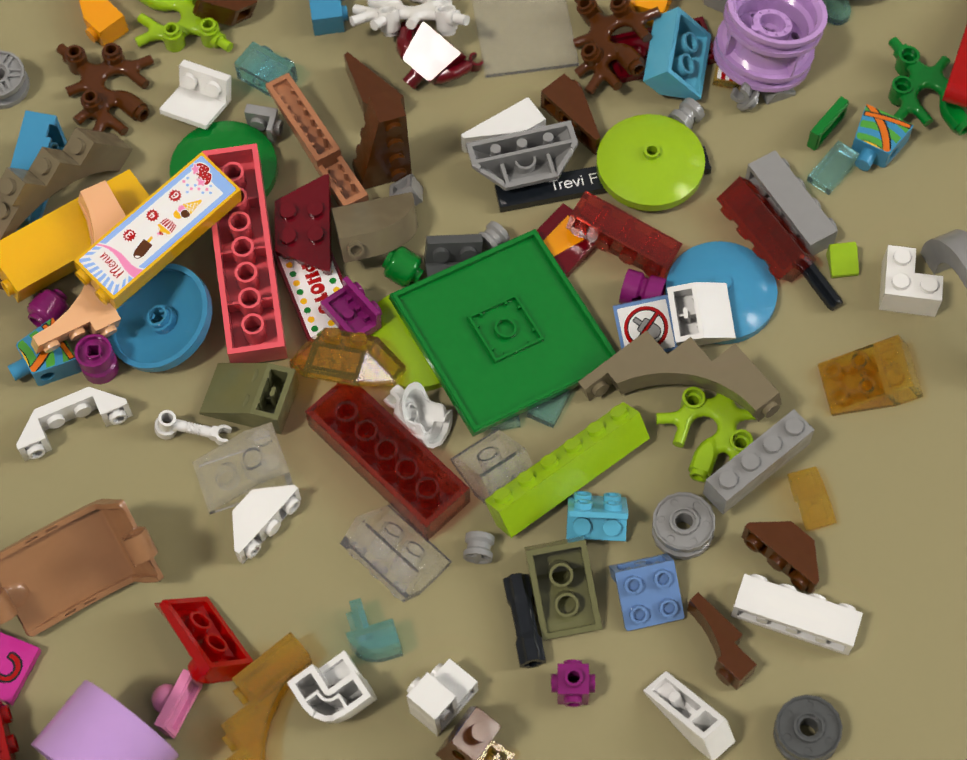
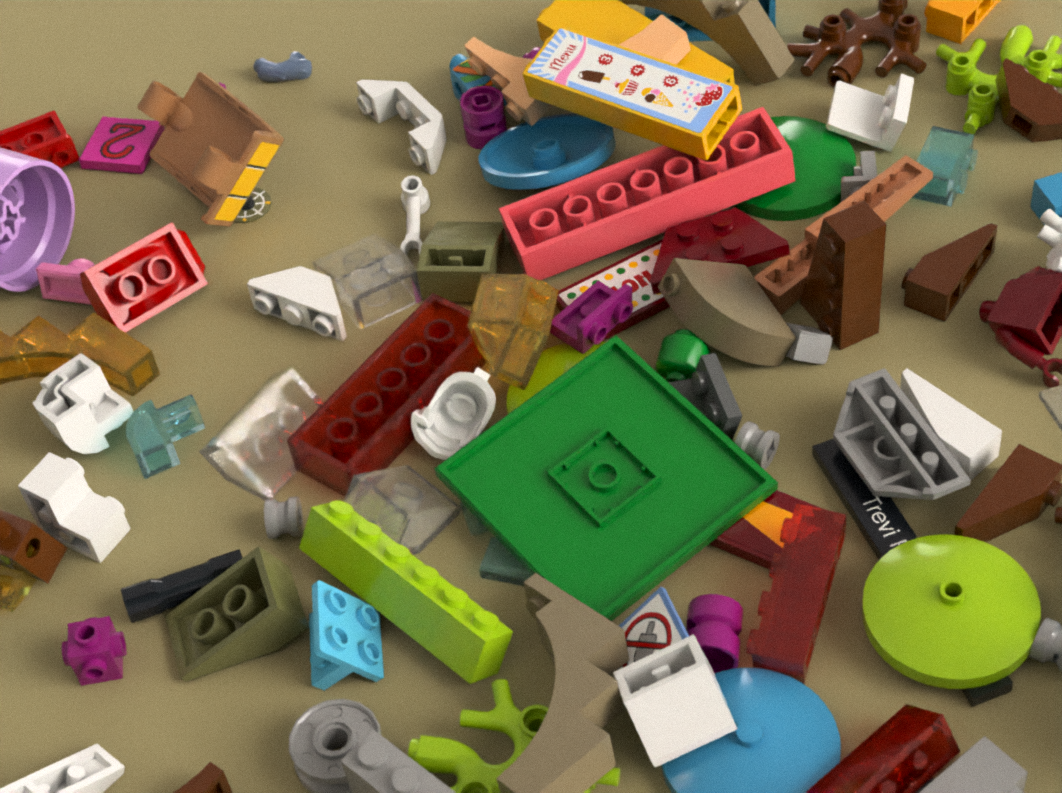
camera: 85 degrees right, 15 degrees down
(648, 591) = (237, 713): medium blue bracket -> none

